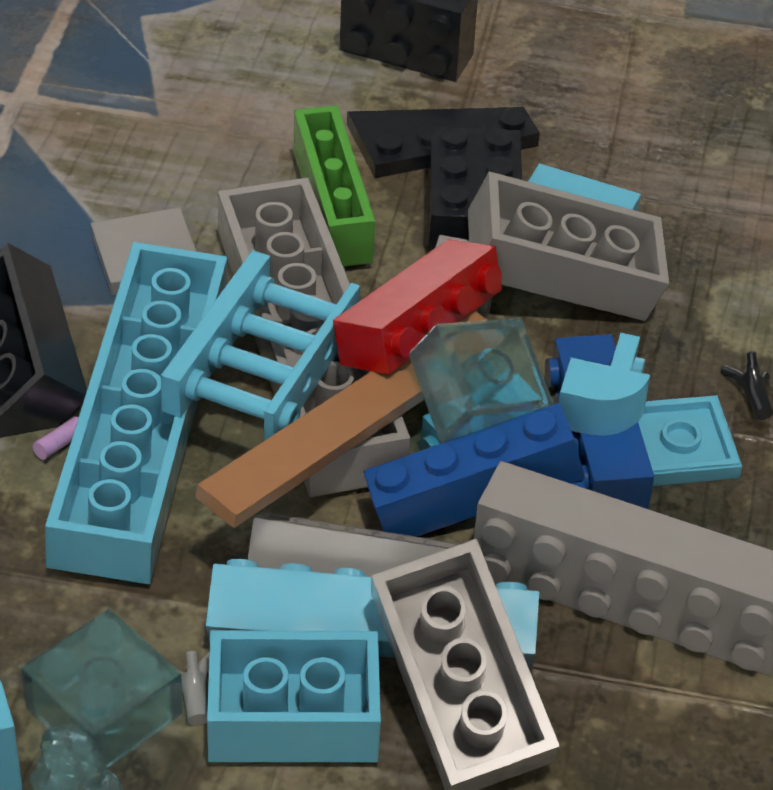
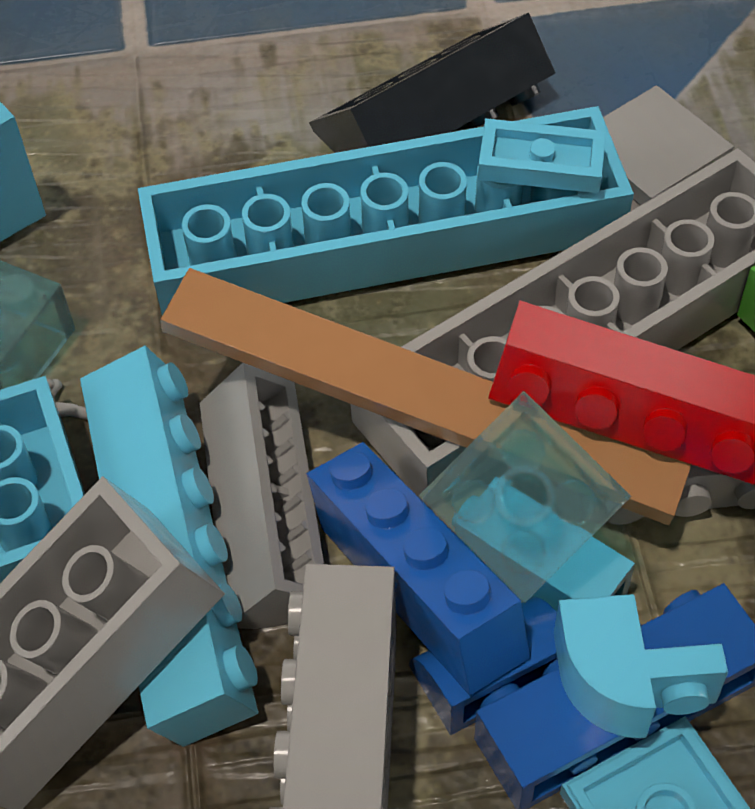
camera: 75 degrees right, 10 degrees up
(176, 281) = (541, 155): none -> medium azure plate
(233, 316) = (466, 217): medium azure fence -> none

